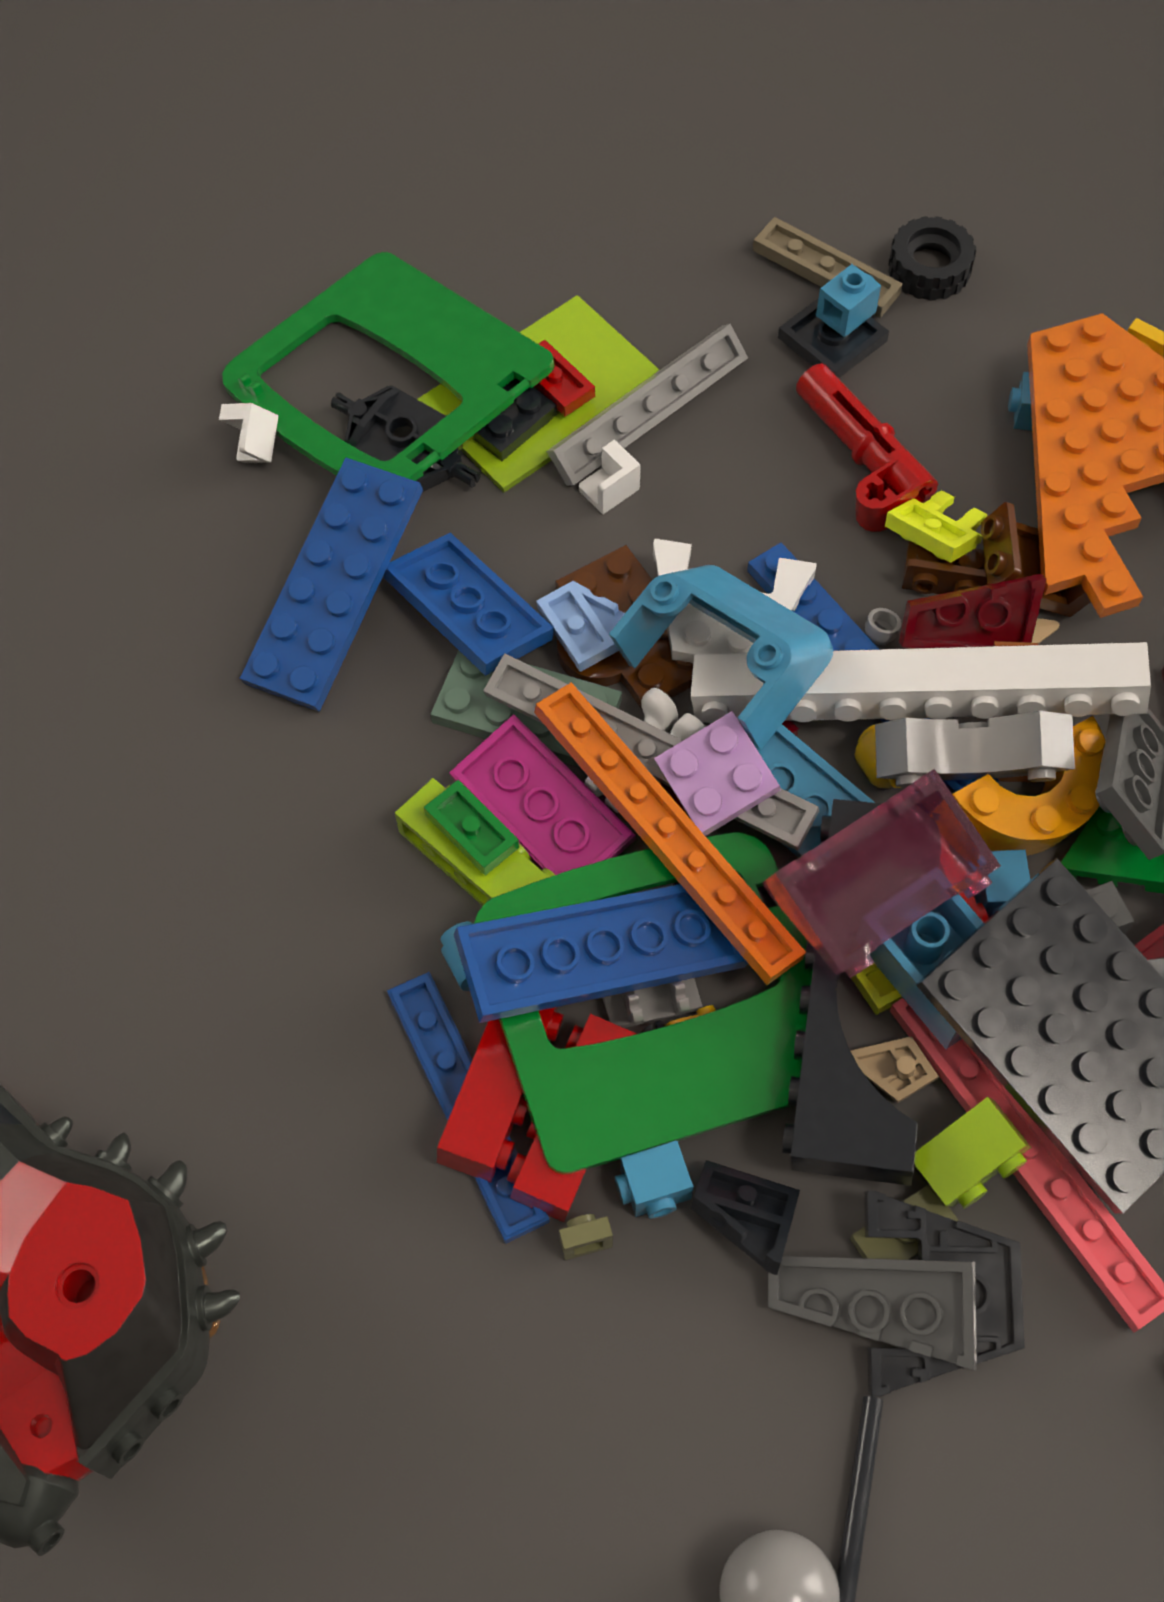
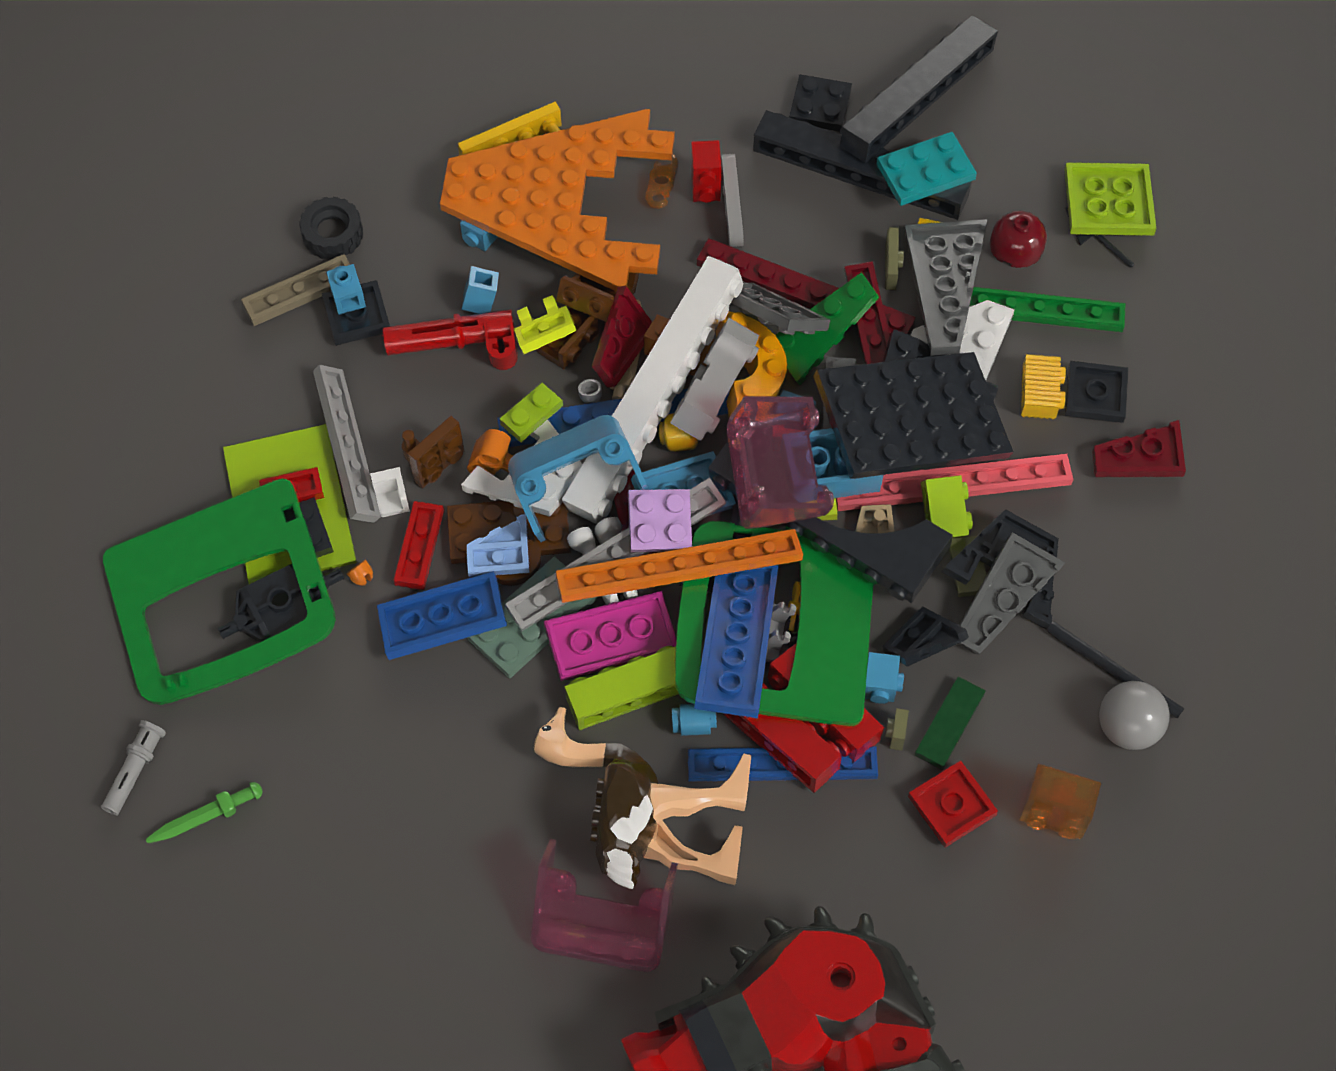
camera: 65 degrees left, 0 degrees up
(124, 503) = (224, 804): none -> bright green sword
(130, 960) = (597, 927): none -> clear pink windscreen
(148, 394) = (138, 754): none -> light grey pin
(256, 433) = (222, 696): white panel -> none
(283, 935) = (633, 806): none -> animal
(332, 584) = (381, 690): blue plate -> none
(471, 827) = (617, 675): green plate -> none
(488, 496) = (361, 573): none -> orange hinge
(506, 1367) = (952, 804): none -> red plate
(555, 540) = (418, 545): none -> red plate
(569, 1528) = (1060, 802): none -> clear orange brick
(638, 1310) = (950, 723): none -> dark green tile
(682, 489) = (434, 453): none -> reddish brown plate
(718, 547) = (491, 452): none -> orange beam
(798, 565) = (531, 412): none -> lime plate
(943, 437) = (480, 290): none -> dark azure brick

